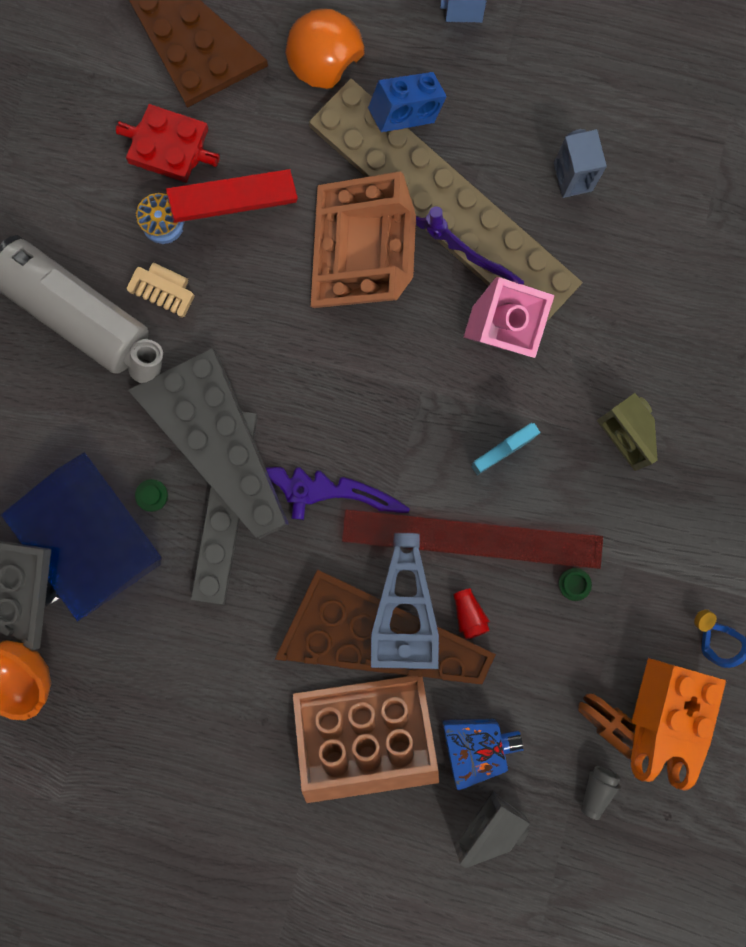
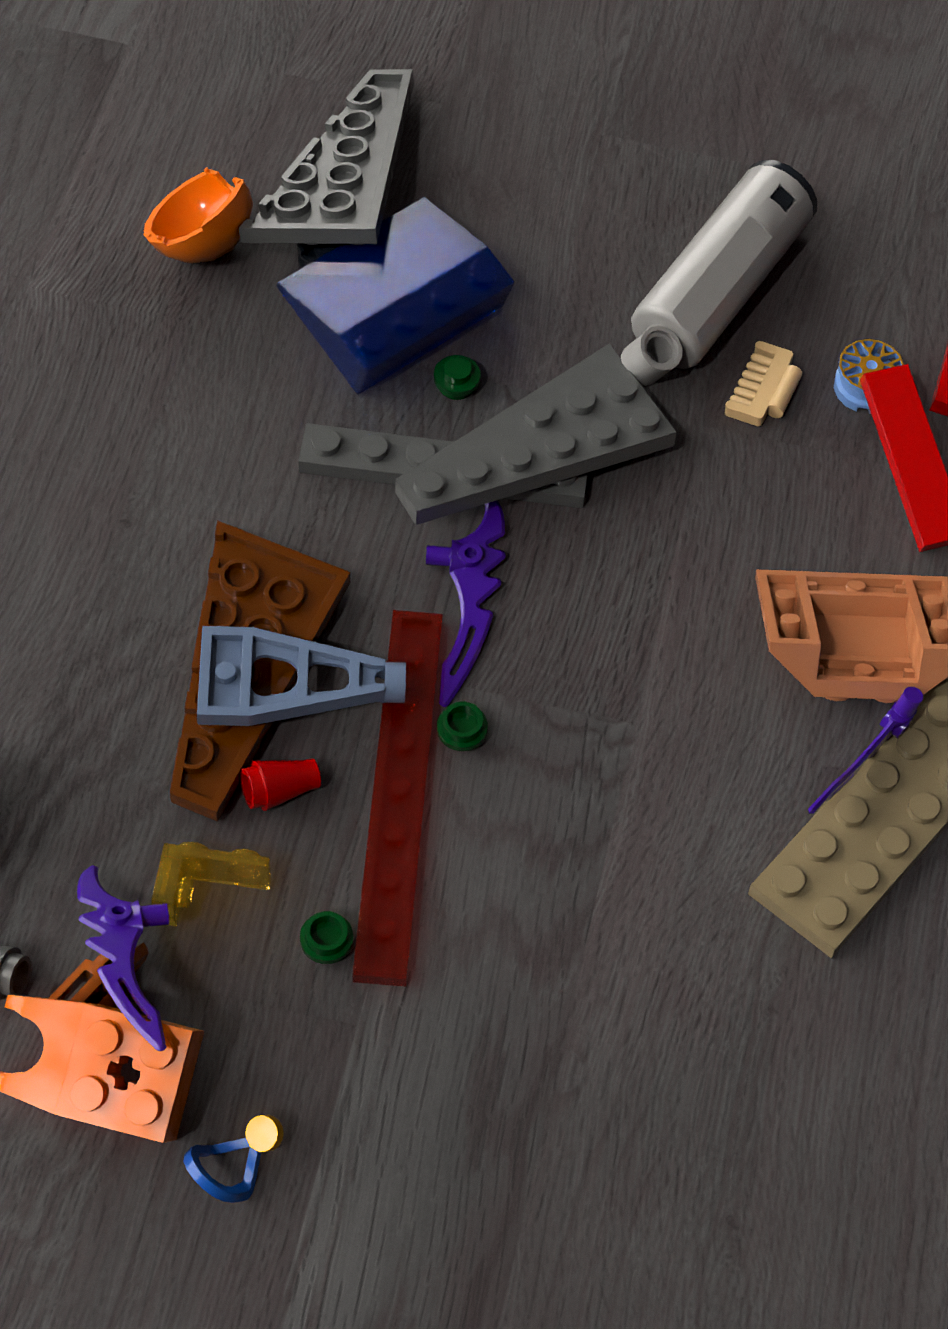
camera: 85 degrees right, 25 degrees down
(364, 739) = (92, 639): nougat slope -> none
(428, 498) = (462, 726): none -> dark green plate
(478, 749) = (69, 787): blue torso -> none
(505, 448) = (546, 820): medium azure tile -> none
(510, 317) = (757, 823): bright pink slope -> none
(547, 678) = (194, 861): none -> clear yellow bracket
(584, 713) = (121, 928): none -> dark purple piece
(632, 431) = (586, 1008): olive slope -> none

